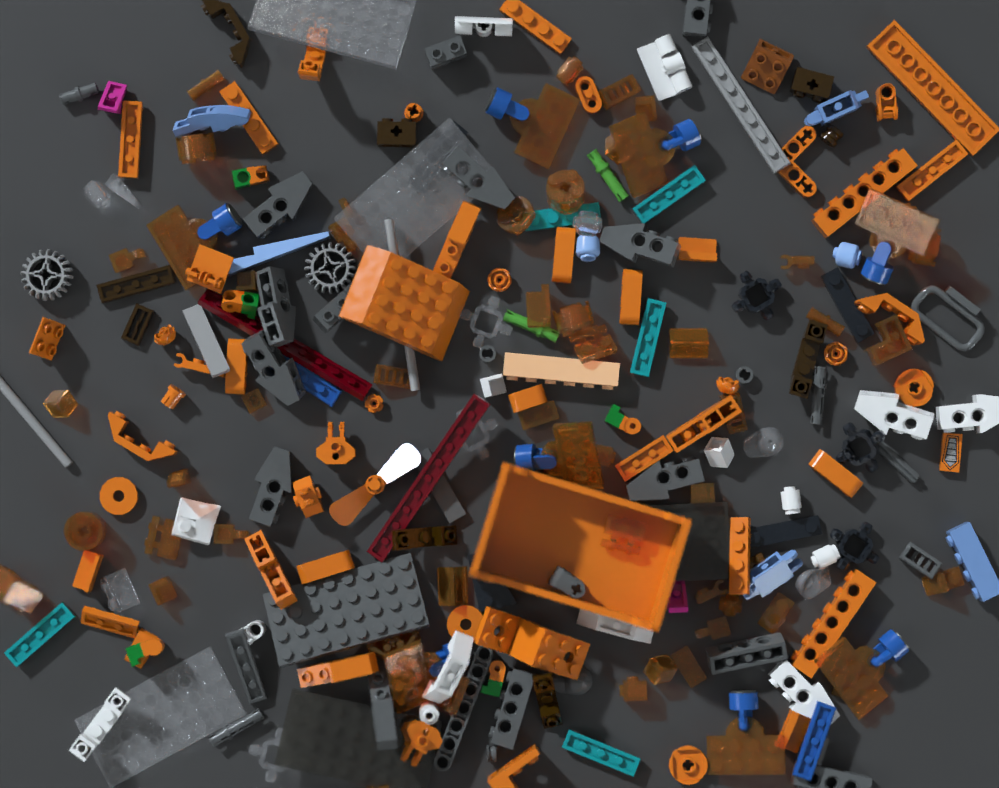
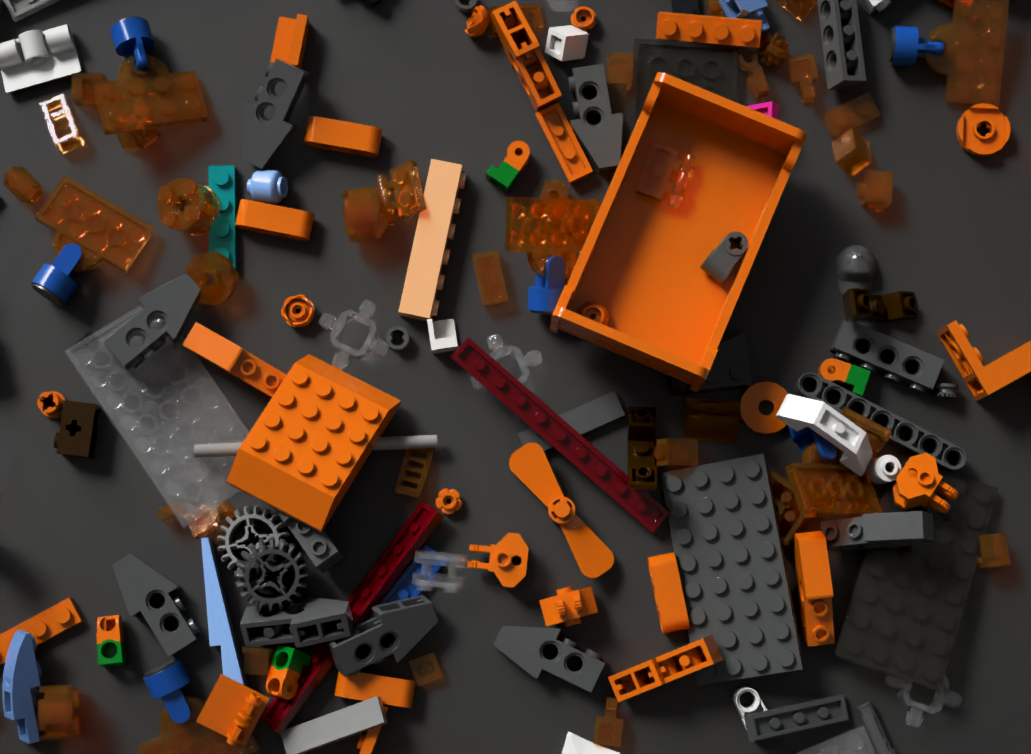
camera: 85 degrees left, 5 degrees down
(312, 288) = (281, 566): none -> dark grey gear
(315, 395) = (449, 582): none -> clear brick
(425, 562) = (676, 452): none -> clear orange brick
(513, 498) = (595, 308): none -> orange plate
(521, 321) = (364, 278): bright green pin -> none
(527, 398) = (465, 289): orange beam -> none
(531, 643) = (802, 316): orange bracket -> none
(538, 308) = (343, 260): clear orange panel -> none
(587, 223) = (235, 181): clear head -> none
(588, 95) = (60, 161): orange plate -> none
(601, 752) = (957, 243): teal plate -> none
(603, 169) = (173, 150): bright green pin -> none
(613, 626) = (787, 208): white slope -> none
(648, 337) = (401, 120): teal plate -> none
(668, 194) = (210, 71): teal plate -> none
(688, 343) = (415, 67): clear orange panel -> none
(744, 462) = (585, 12): none -> orange plate

